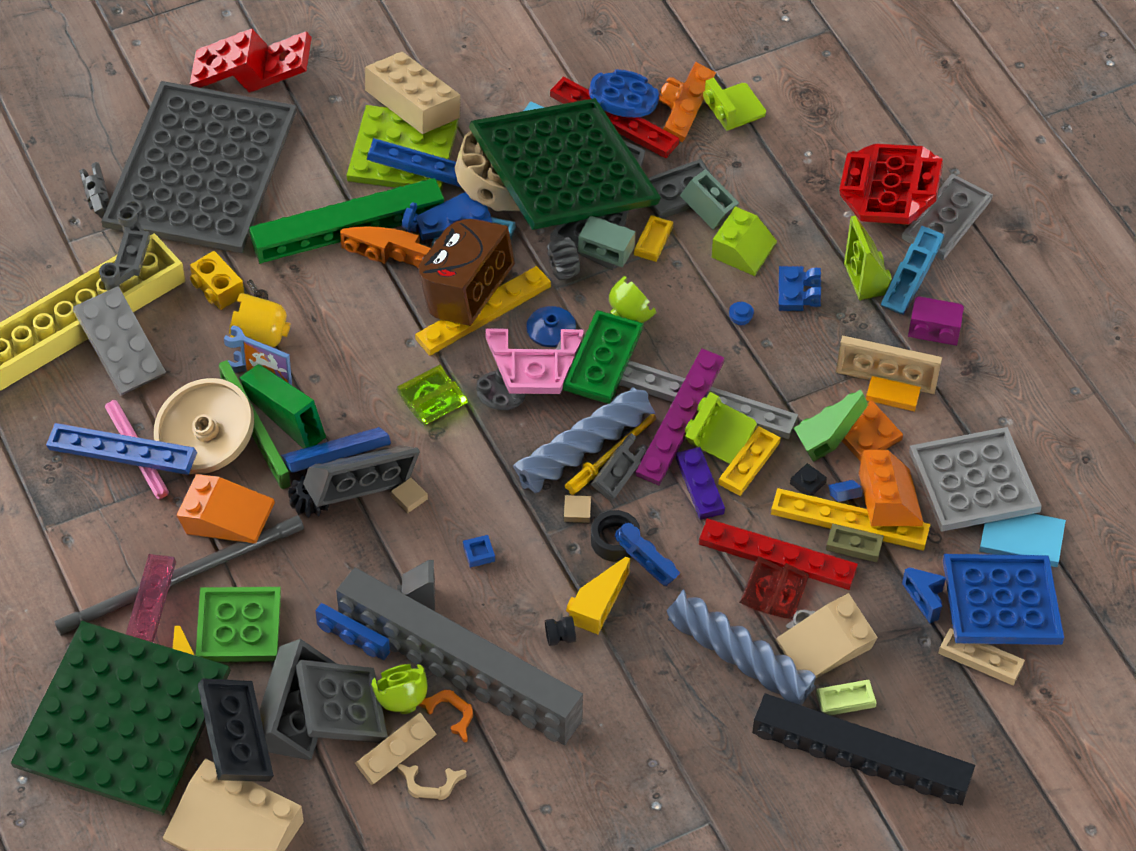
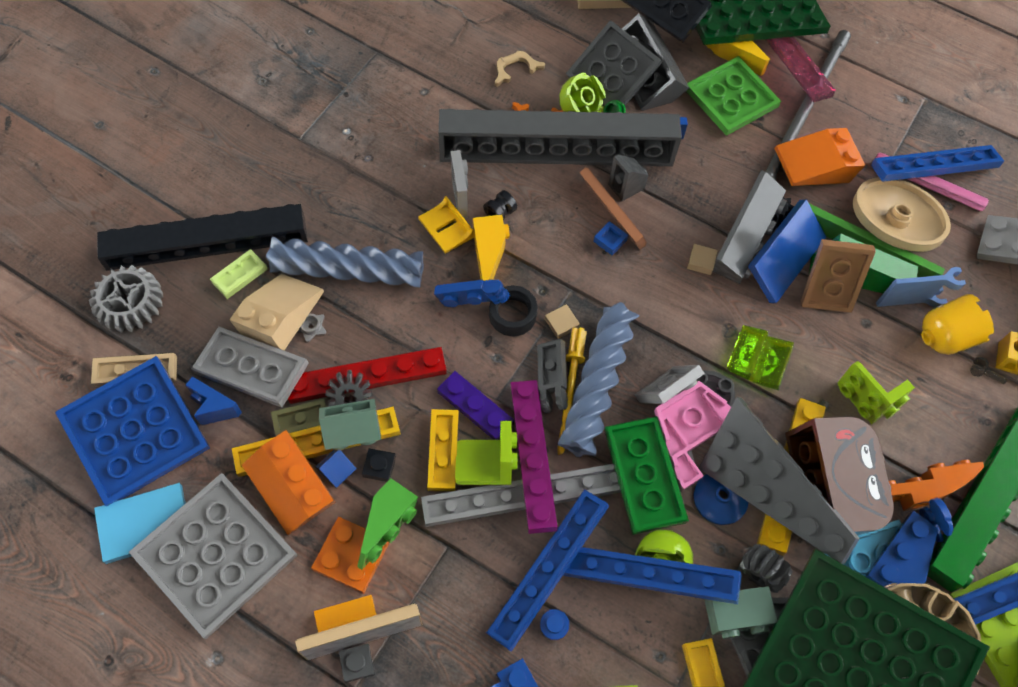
camera: 145 degrees right, 10 degrees up
(323, 396) = (837, 275): none -> medium nougat plate
(374, 304) = (870, 396): none -> lime bracket
(377, 660) = (614, 106): none -> green plate
(395, 748) = (554, 70): tan plate -> none
(456, 572) = (613, 208): none -> nougat tile
(519, 294) = (765, 475): none -> dark grey wing
(534, 401) = (670, 384): none -> light grey plate
(587, 661) = (460, 182): none -> light grey plate
(623, 632) = (442, 216): none -> yellow piece
(655, 289) = (656, 575): none -> blue plate
(722, 340) = (547, 570): none -> blue tile
(774, 588) = (350, 339): clear red slope -> none
(804, 533) = (337, 389): none -> dark grey gear
(818, 495) = (349, 424): none -> sand green brick
(881, 605) = (250, 366): none -> light grey tile
(950, 732) = (109, 298): none -> light grey gear

